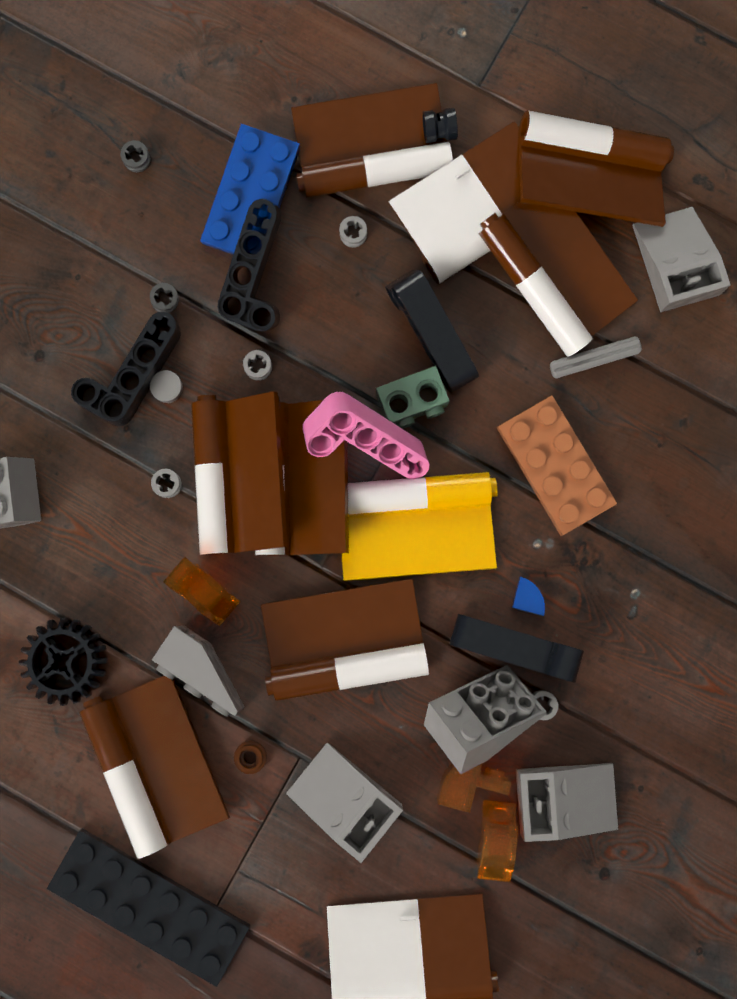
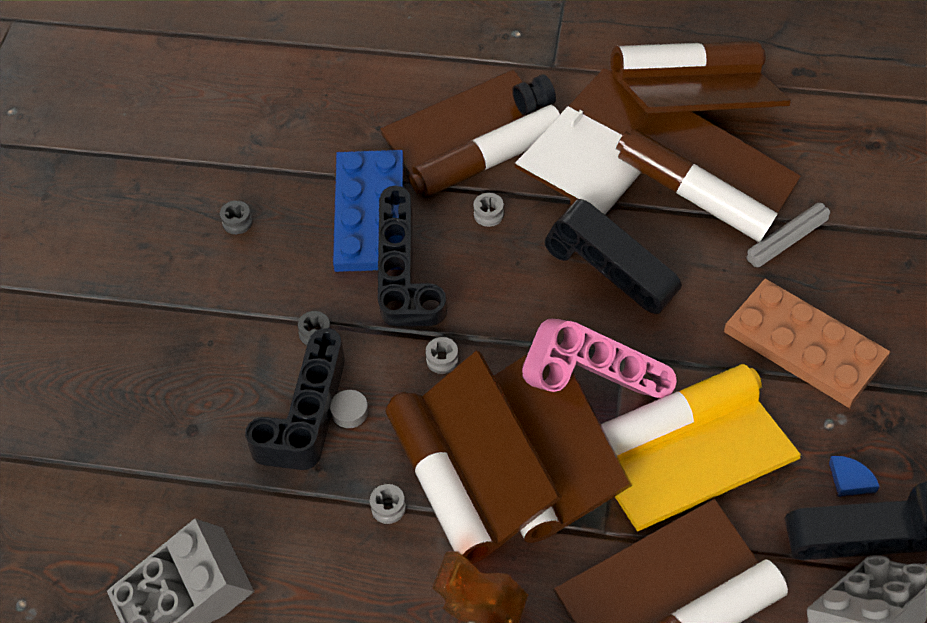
camera: 20 degrees left, 30 degrees down
(408, 390) = (619, 320): sand green brick -> none
(681, 260) = (825, 129): light grey slope -> none

